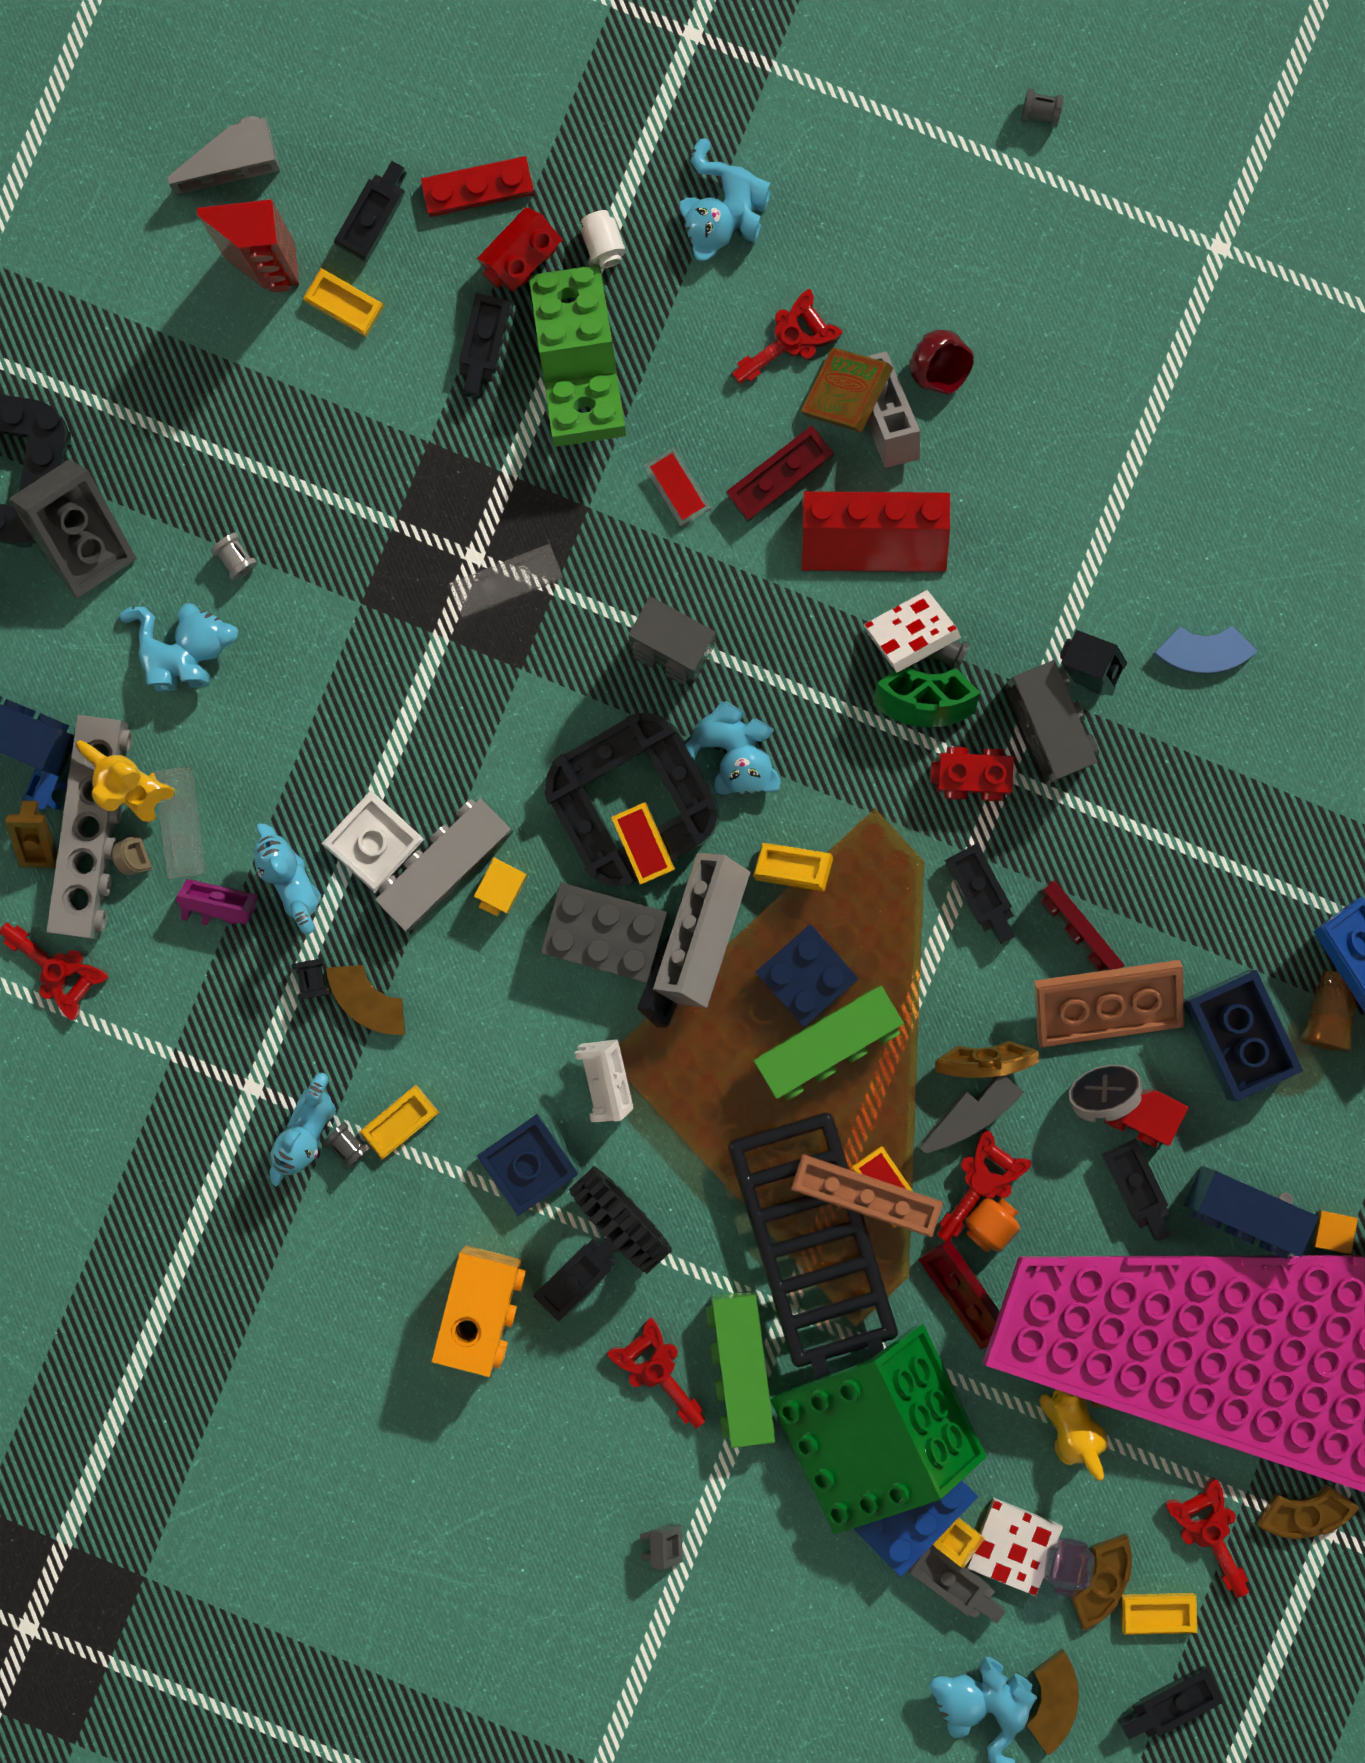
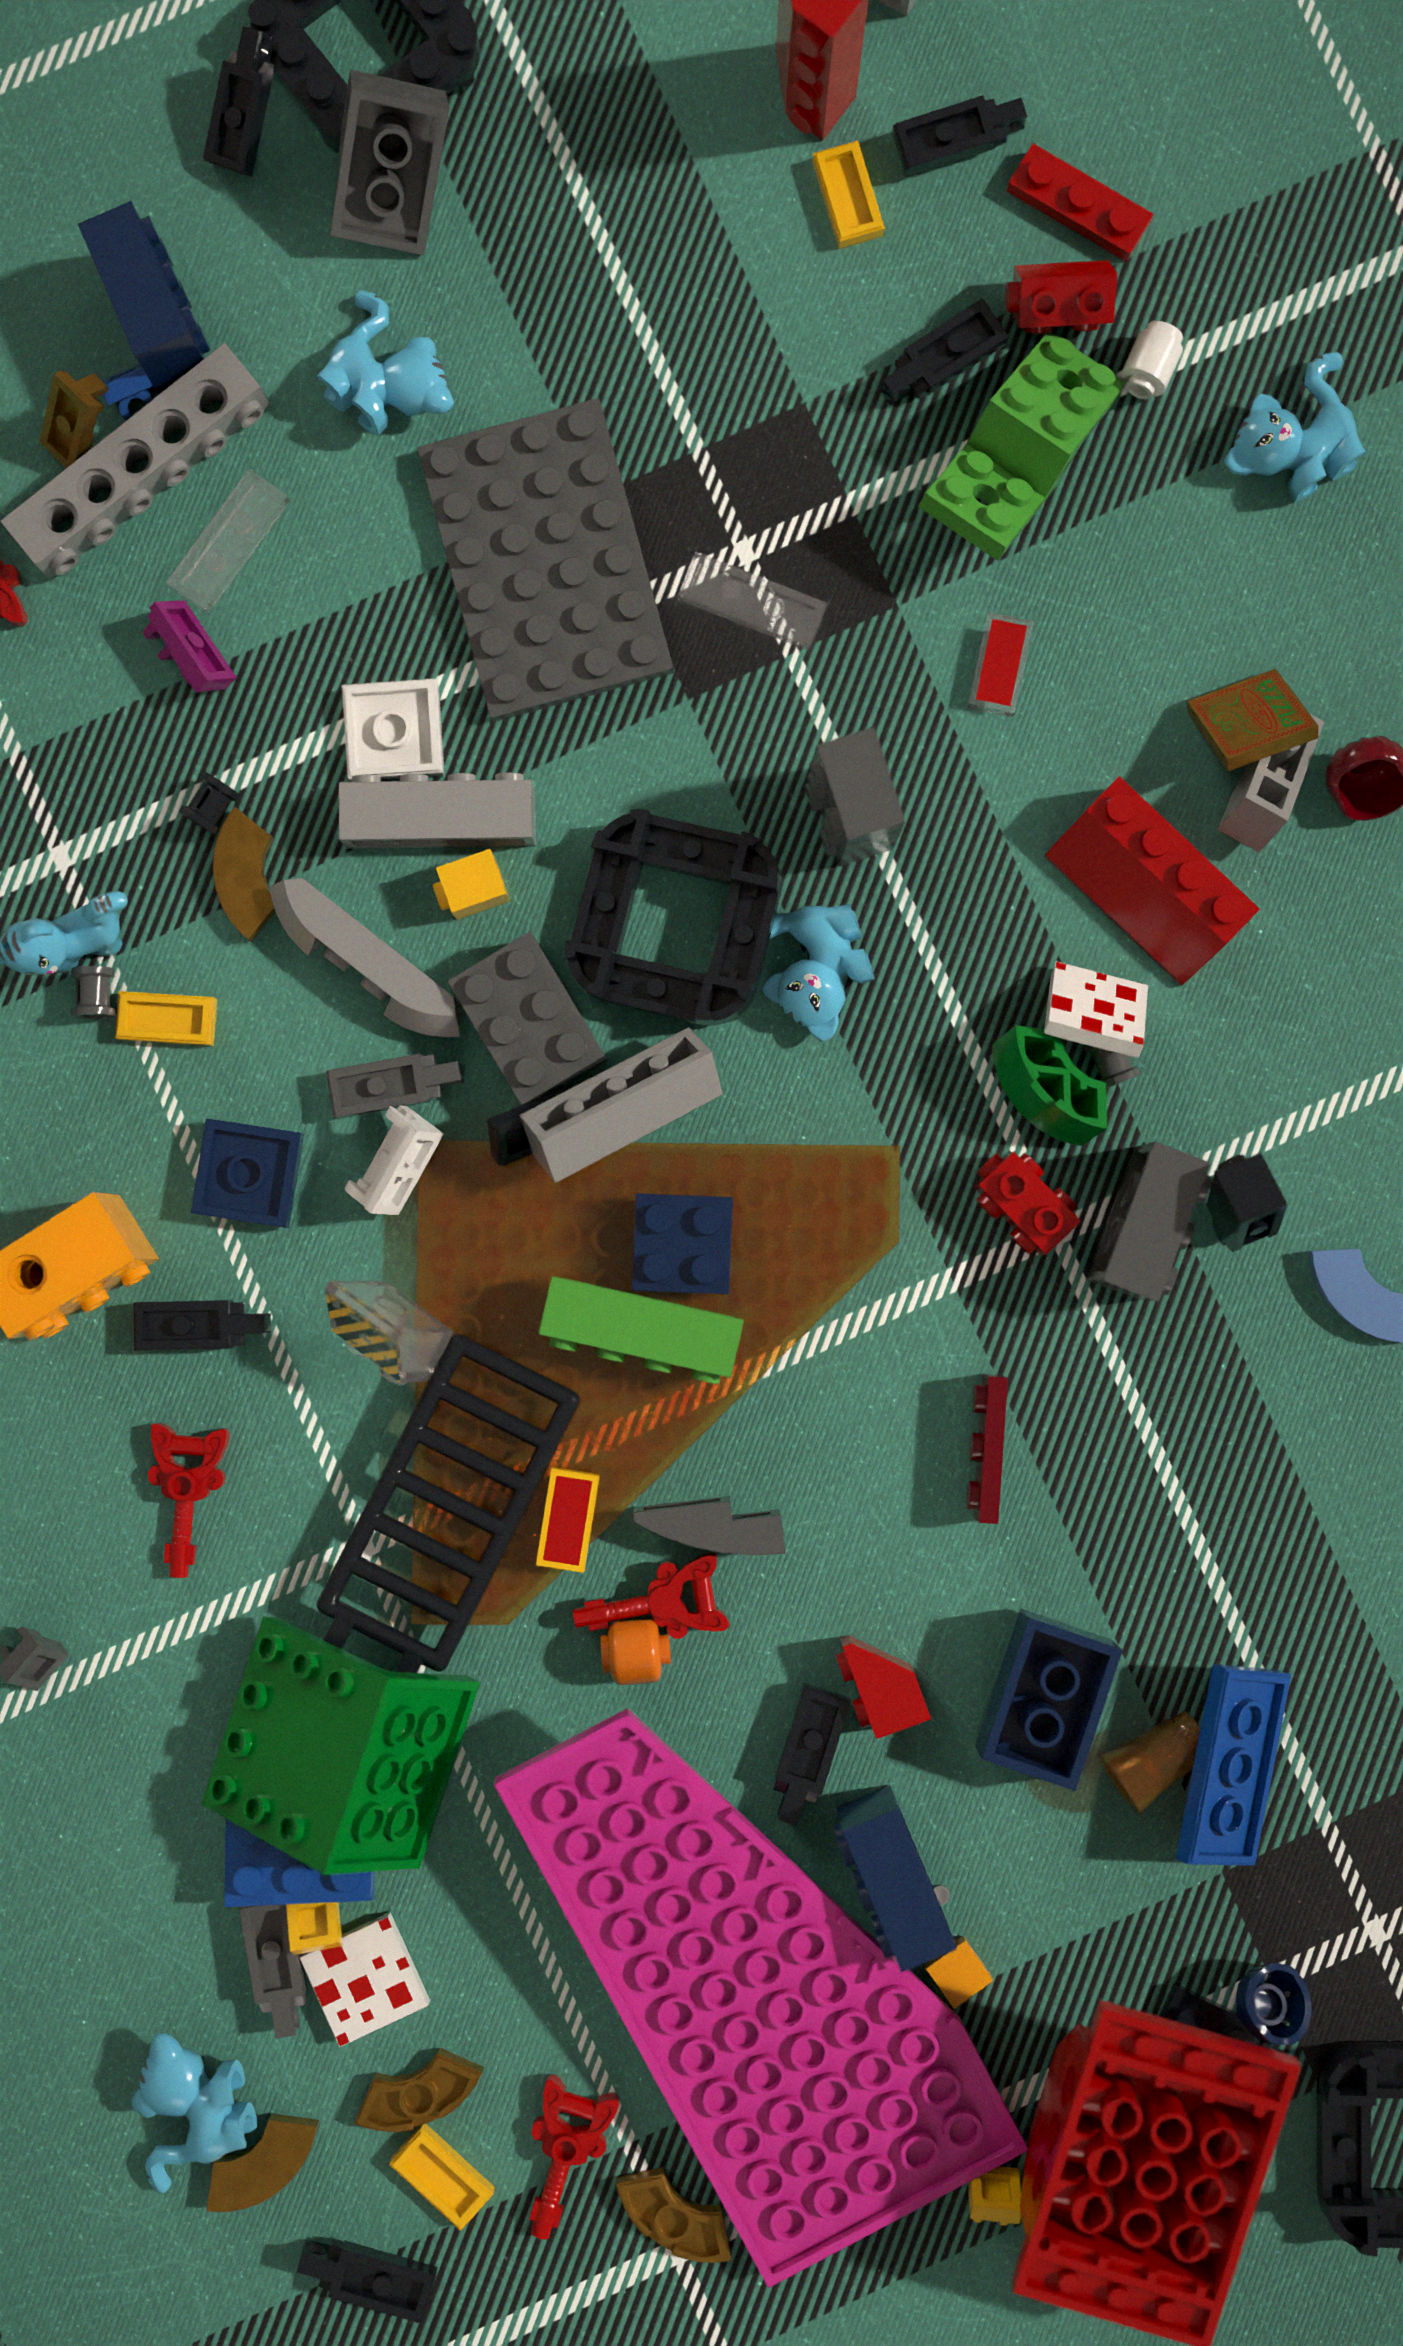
camera: 45 degrees right, 0 degrees up
(120, 781) = (202, 439): yellow animal -> none
(131, 856) = (150, 528): dark tan tile -> none
(233, 556) = (516, 336): light grey bush -> none
(281, 866) = (282, 679): medium azure animal -> none
(368, 666) = (545, 560): none -> dark grey plate
(431, 988) = (317, 921): none -> light grey brick
(559, 1040) = (389, 1083): none -> dark grey hinge
(620, 1220) = (278, 1308): black tyre -> none
(643, 843) = (645, 968): red tile -> none
(689, 1176) = (386, 1329): none -> clear slope
(742, 1368) = (265, 1562): bright green brick -> none
(779, 473) = (1111, 741): dark red plate -> none
(790, 338) = (1243, 623): red piece -> none
(793, 866) = (768, 1128): yellow tile -> none
(867, 1195) = (539, 1509): nougat tile -> none
(962, 1291) = (545, 1687): dark red plate -> none
(982, 891) = (927, 1323): black hinge -> none
(986, 1061) = (777, 1490): pearl gold tile -> none
(1069, 1566) = (397, 2050): clear purple head -> none
(1078, 1435) = (525, 1933): yellow animal -> none
(1106, 1093) = (863, 1629): tile -> none
(1109, 1003) = (948, 1546): nougat tile -> none

